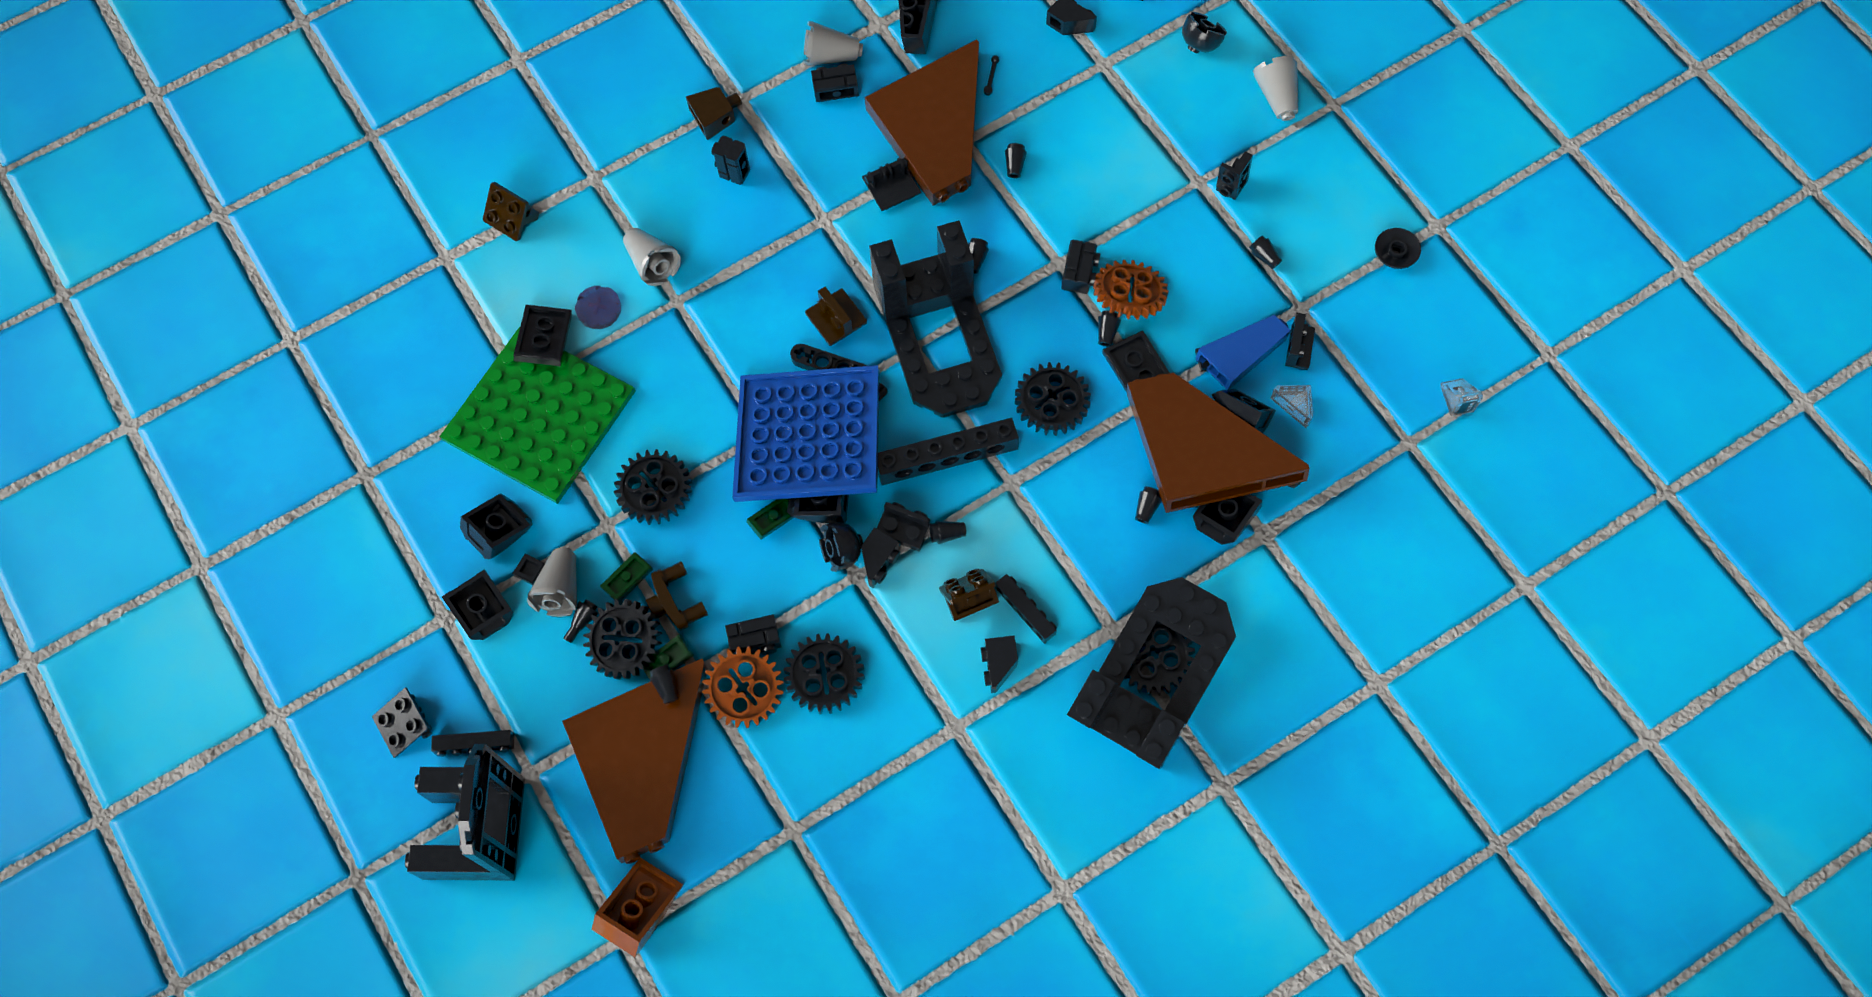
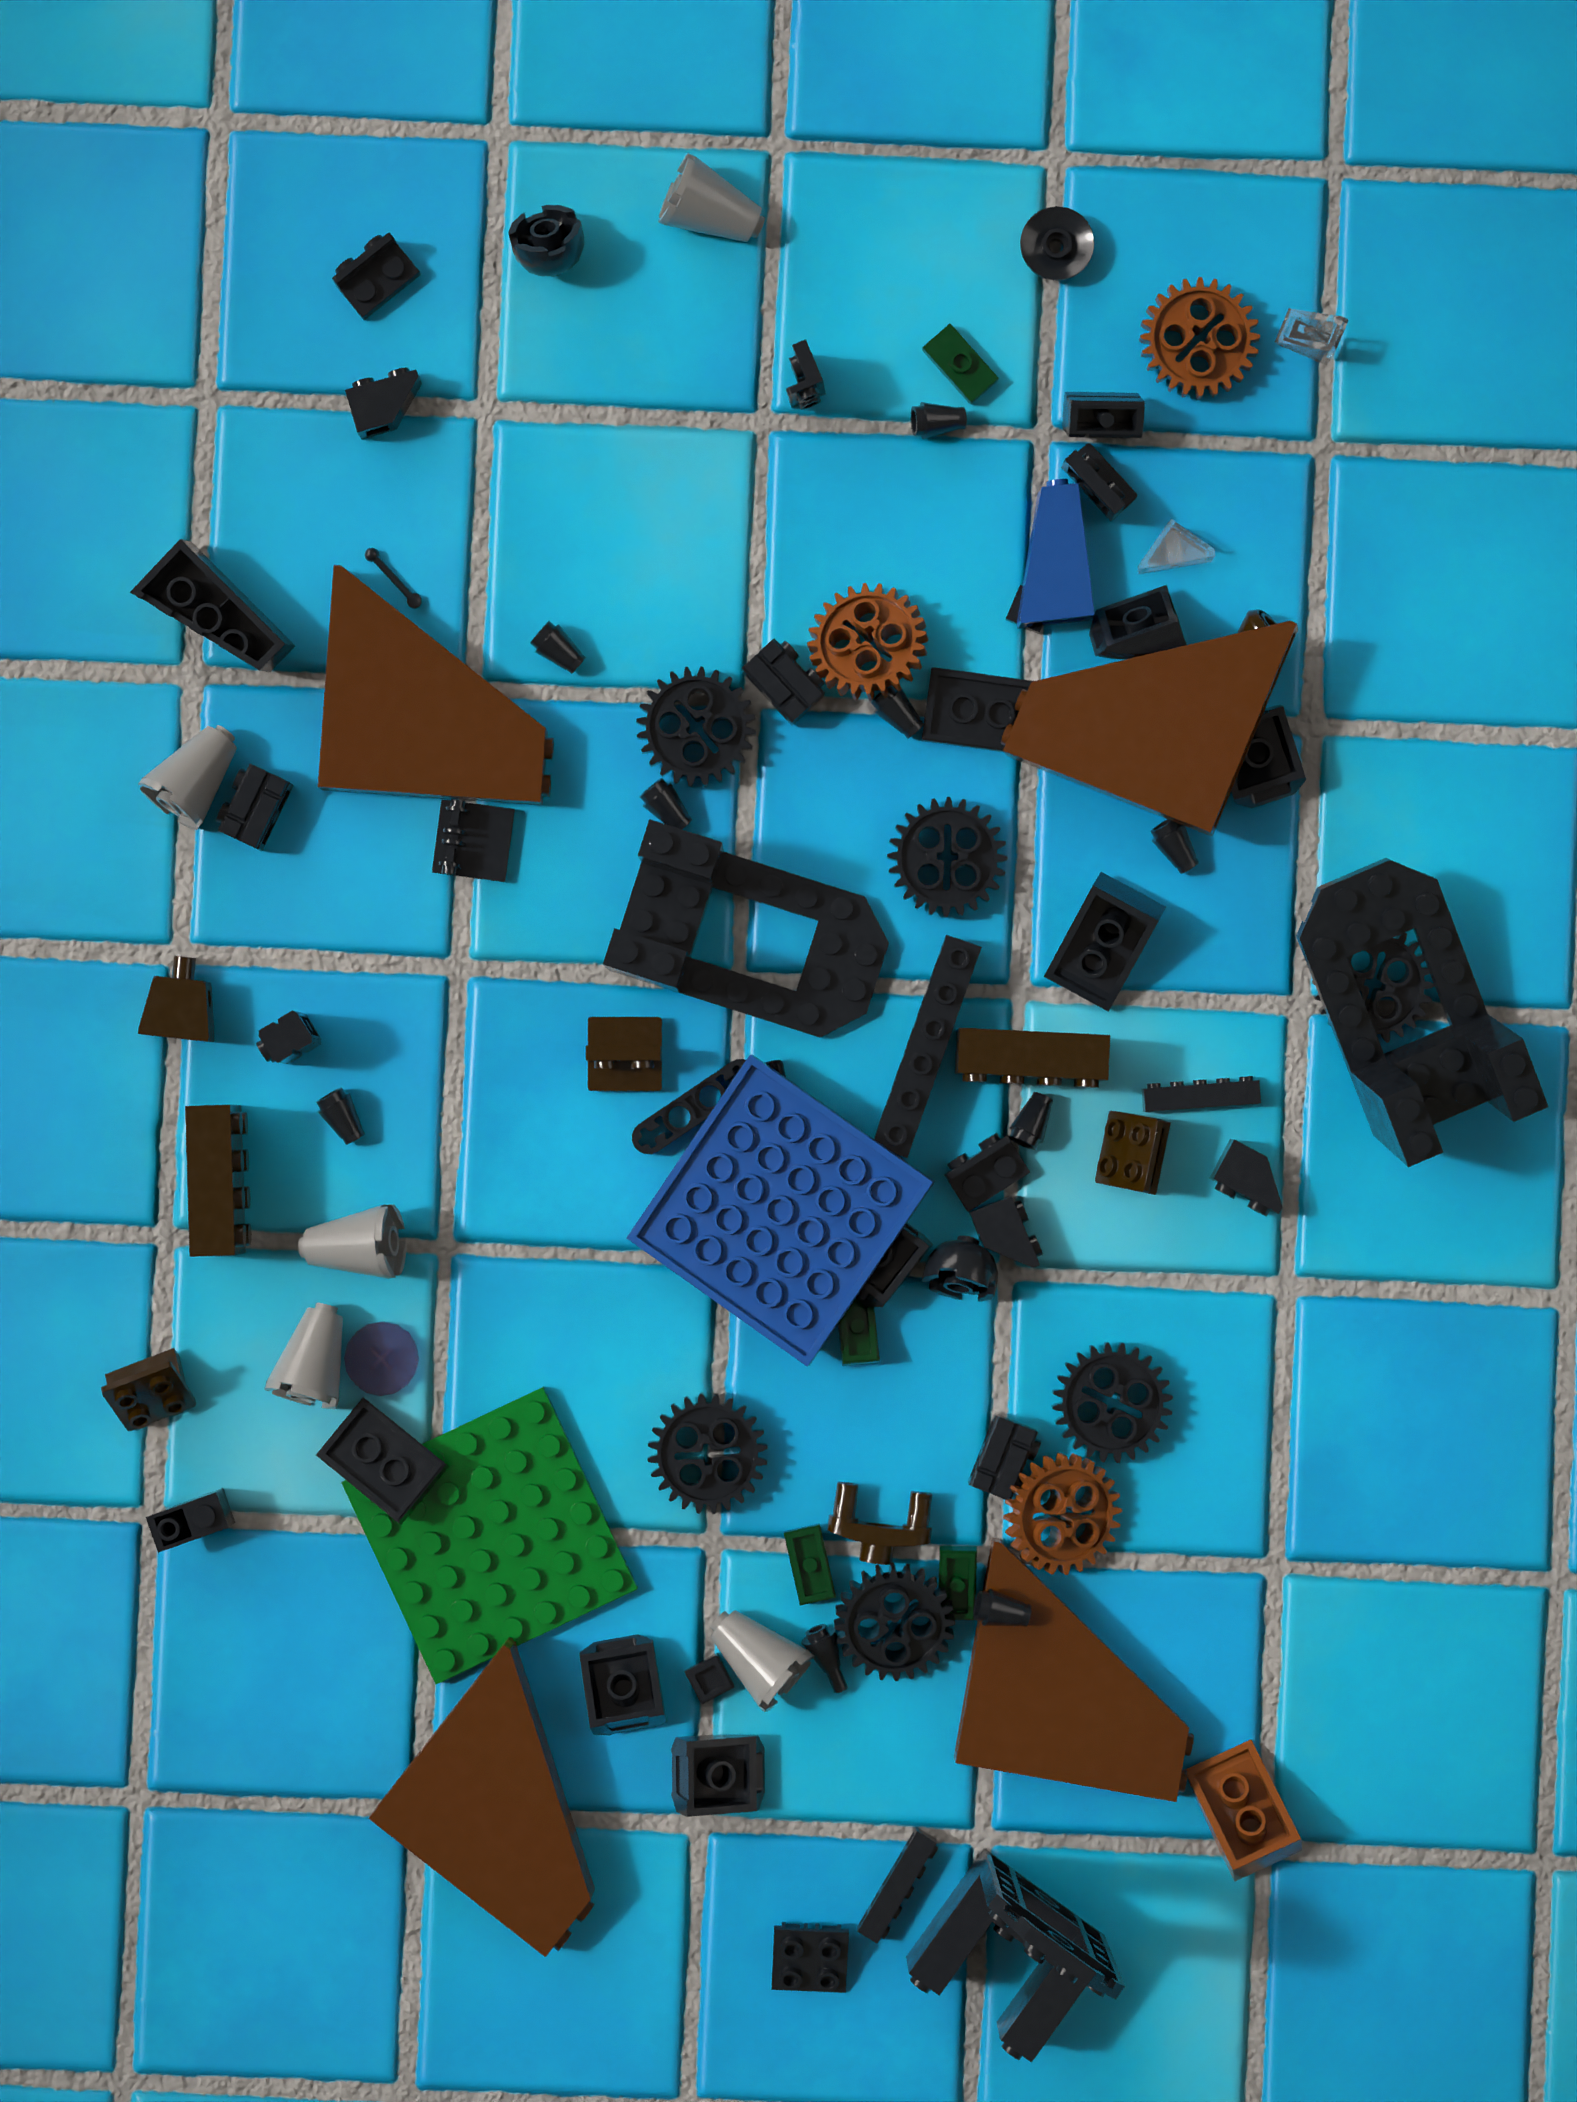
camera: 60 degrees left, 20 degrees up
(385, 502) = (492, 1810): none -> reddish brown slope
(454, 269) = (190, 1520): none -> black slope
(573, 270) = (311, 1360): none -> light grey cone
(636, 172) = (217, 1180): none -> dark brown brick
(710, 210) = (341, 1115): none -> black cone
(981, 502) = (1032, 1055): none -> dark brown brick
(1005, 238) = (670, 747): none -> black gear
(1070, 502) = (1104, 941): none -> black slope
(1301, 246) = (960, 364): none -> dark green plate
(1334, 321) = (1103, 414): none -> black brick
(1410, 343) = (1176, 316): none -> dark orange gear

